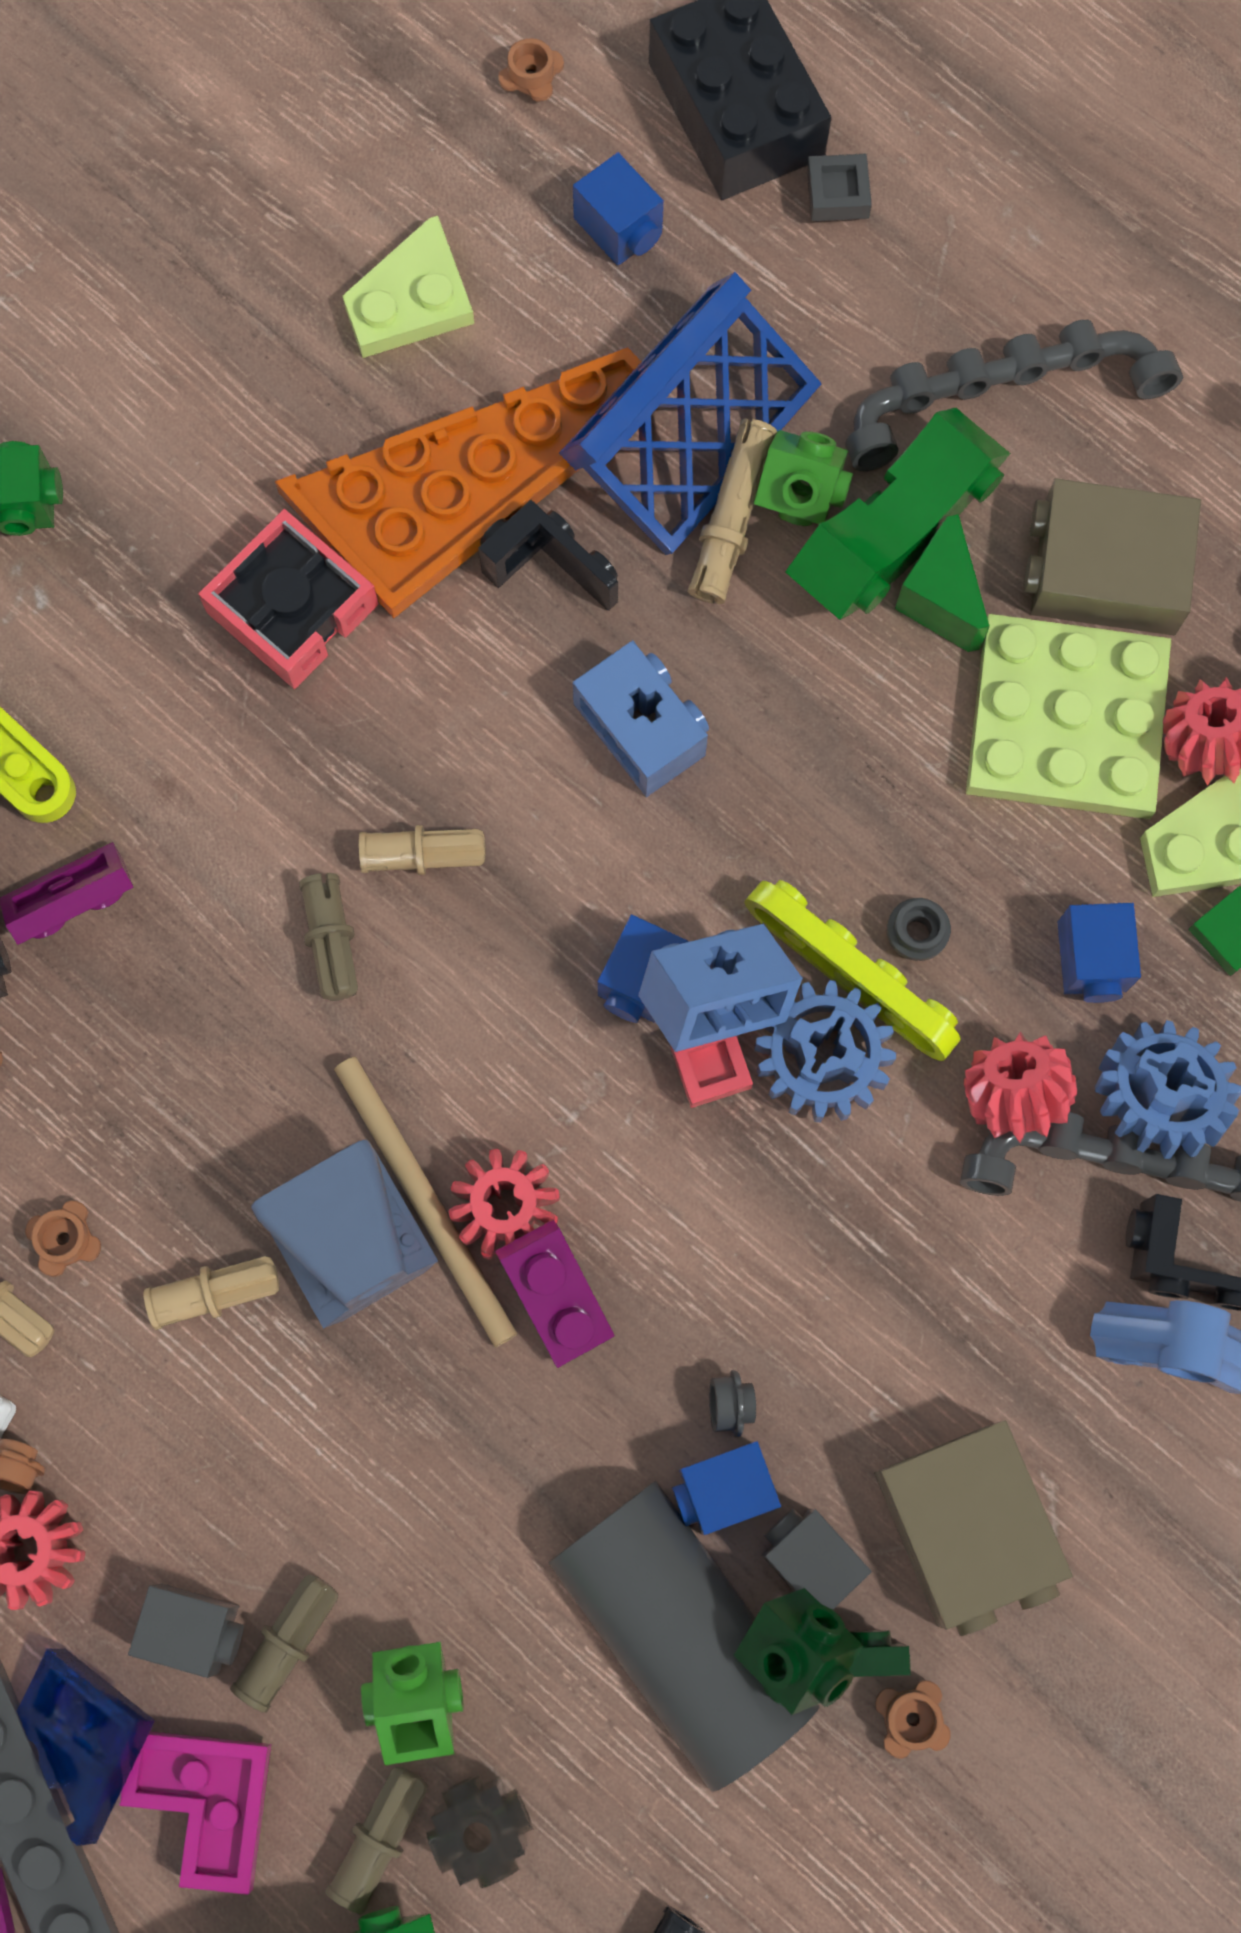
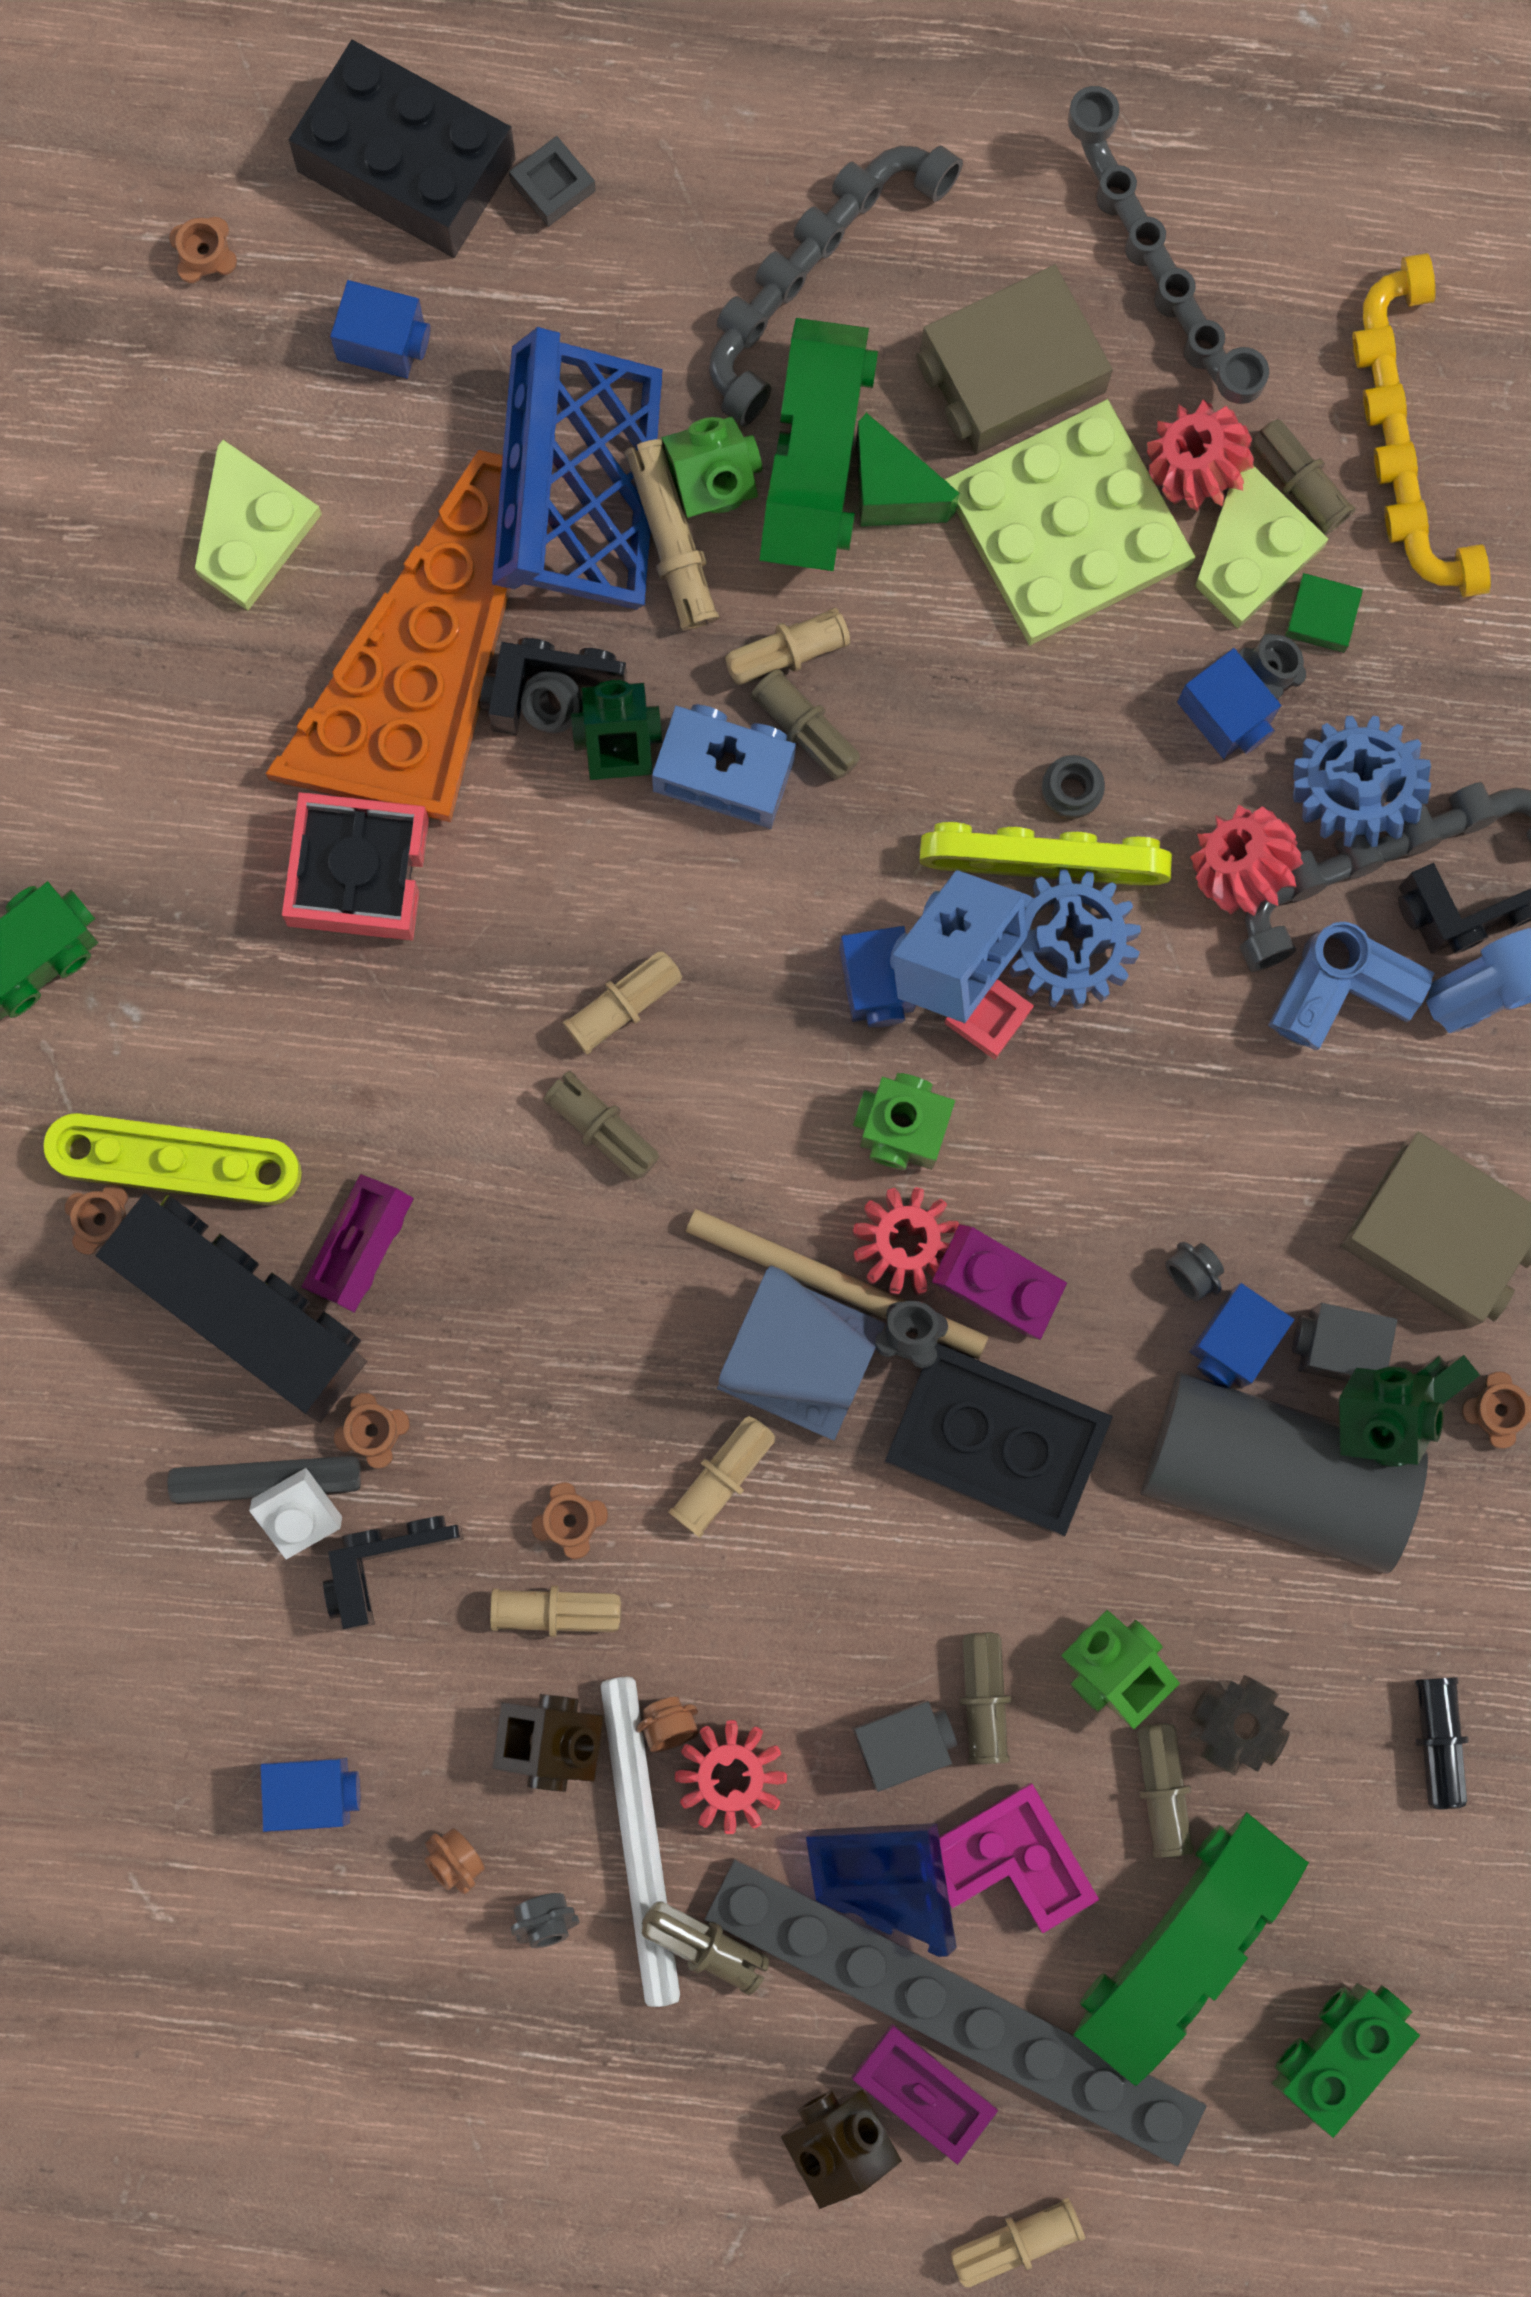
camera: 40 degrees left, 5 degrees up
(454, 1267) = (915, 1318): none -> dark grey plate
(459, 1427) = (999, 1440): none -> black plate
(529, 572) = (539, 710): none -> dark grey plate
(572, 629) = (616, 730): none -> dark green brick
(576, 1126) = (913, 1100): none -> bright green brick
(732, 731) = (806, 725): none -> dark tan axle
(762, 660) = (789, 647): none -> tan axle
(1064, 1260) = (1371, 974): none -> medium blue piece
(1162, 943) = (1276, 663): none -> dark grey plate

